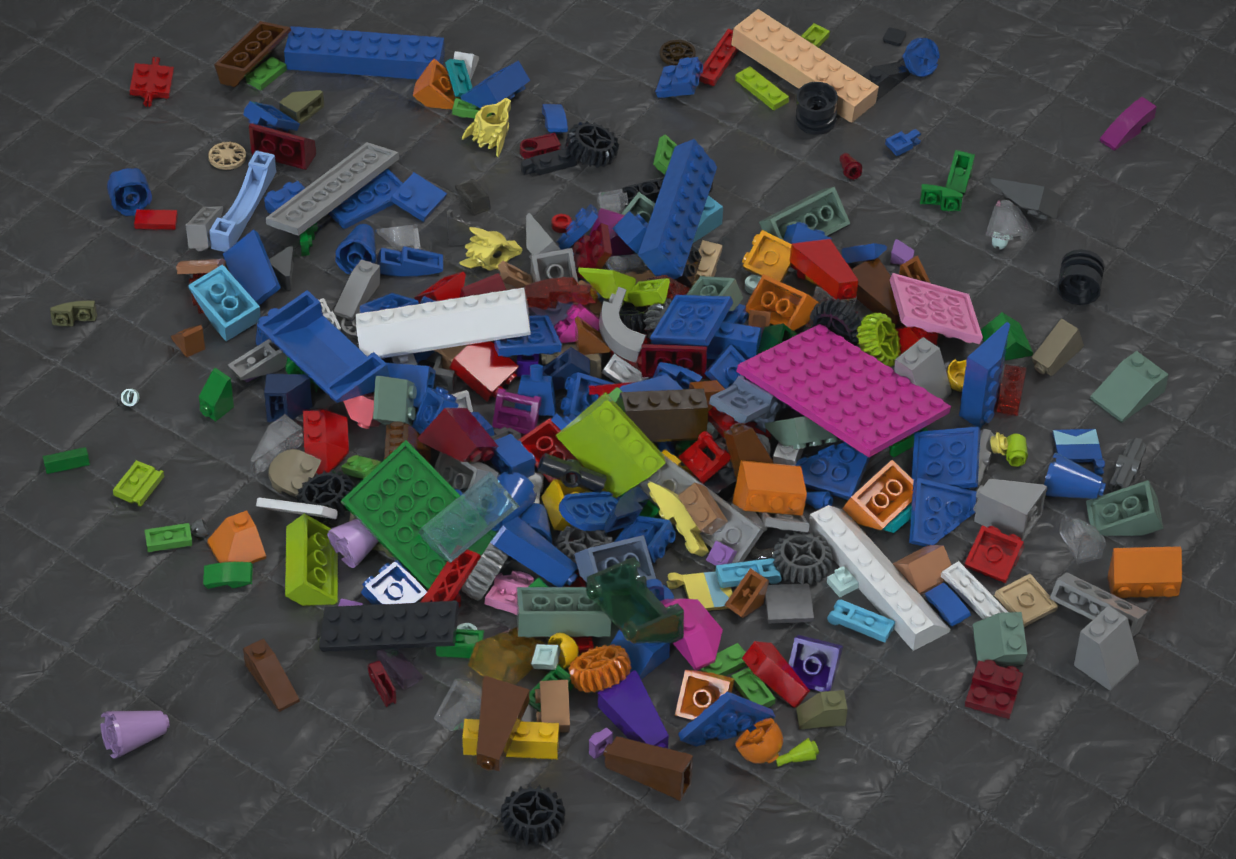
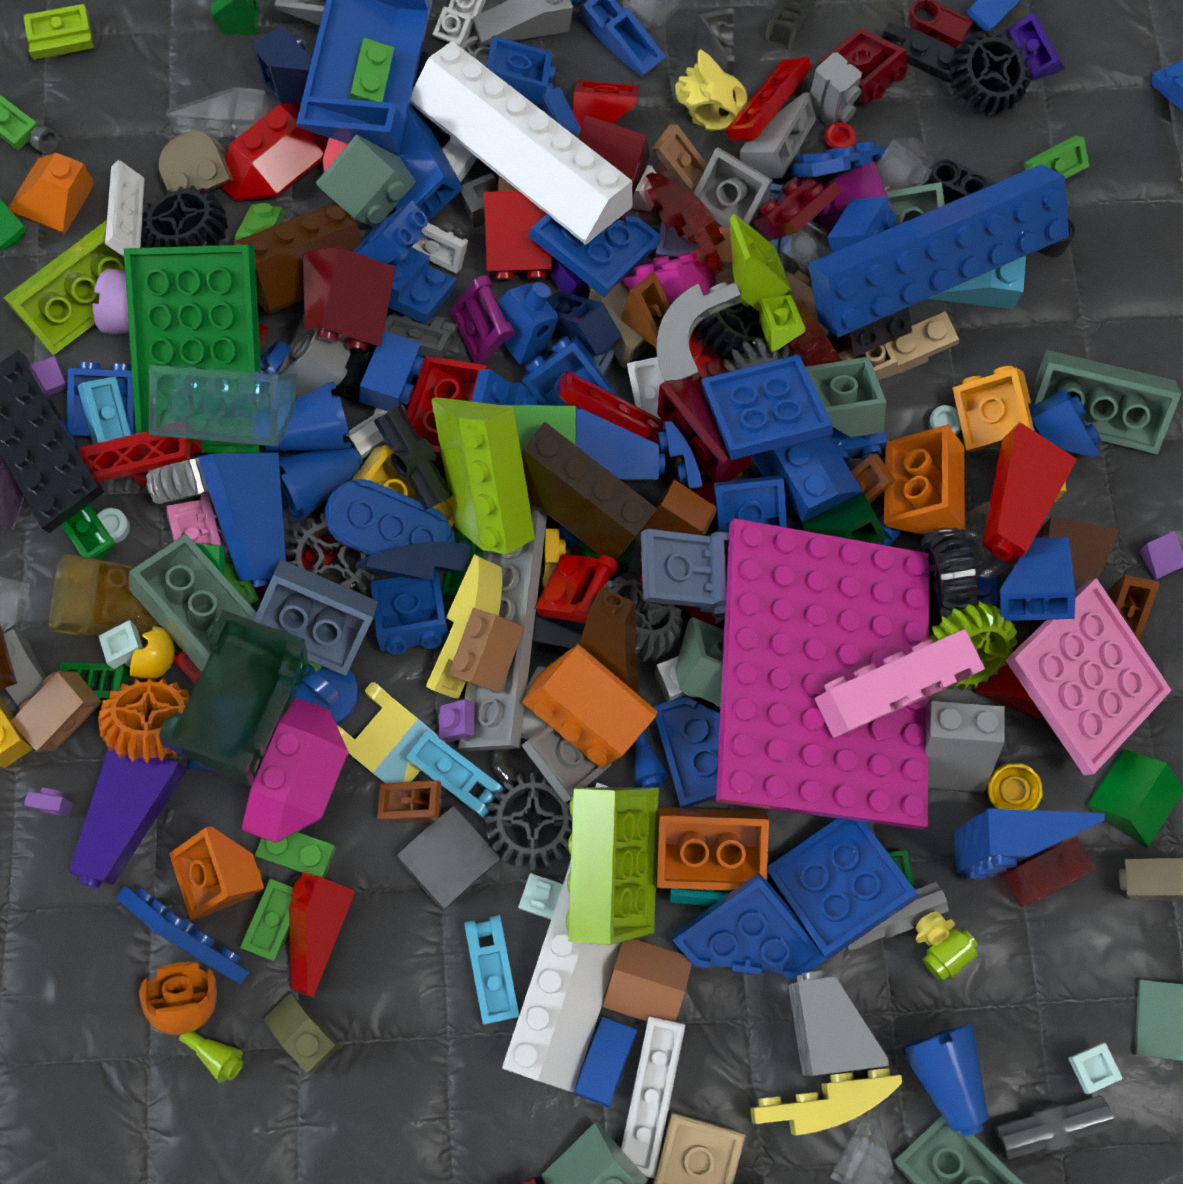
camera: 50 degrees right, 25 degrees up
(335, 356) = (371, 71): none -> bright green plate
(401, 588) = (103, 410): none -> medium azure slope
(516, 228) = (769, 99): none -> red plate
(534, 185) = (876, 59): none -> dark red plate
(539, 201) = (835, 89): none -> light grey brick
(600, 119) = (1036, 46): none -> dark purple slope
(651, 765) = (47, 891): reddish brown slope -> none
(815, 662) = (373, 964): dark purple slope -> none
(858, 523) = (612, 864): none -> lime slope
(863, 252) = (1109, 511): blue slope -> none
(876, 359) = (898, 682): none -> bright pink wedge
(879, 287) = (1040, 583): none -> blue slope
(994, 553) = (742, 1061): red plate -> none
(1043, 537) = (841, 1102): none -> light yellow slope
(1080, 446) = (1034, 1030): blue flag -> none
(1114, 433) = (1095, 1068): none -> light aqua tile

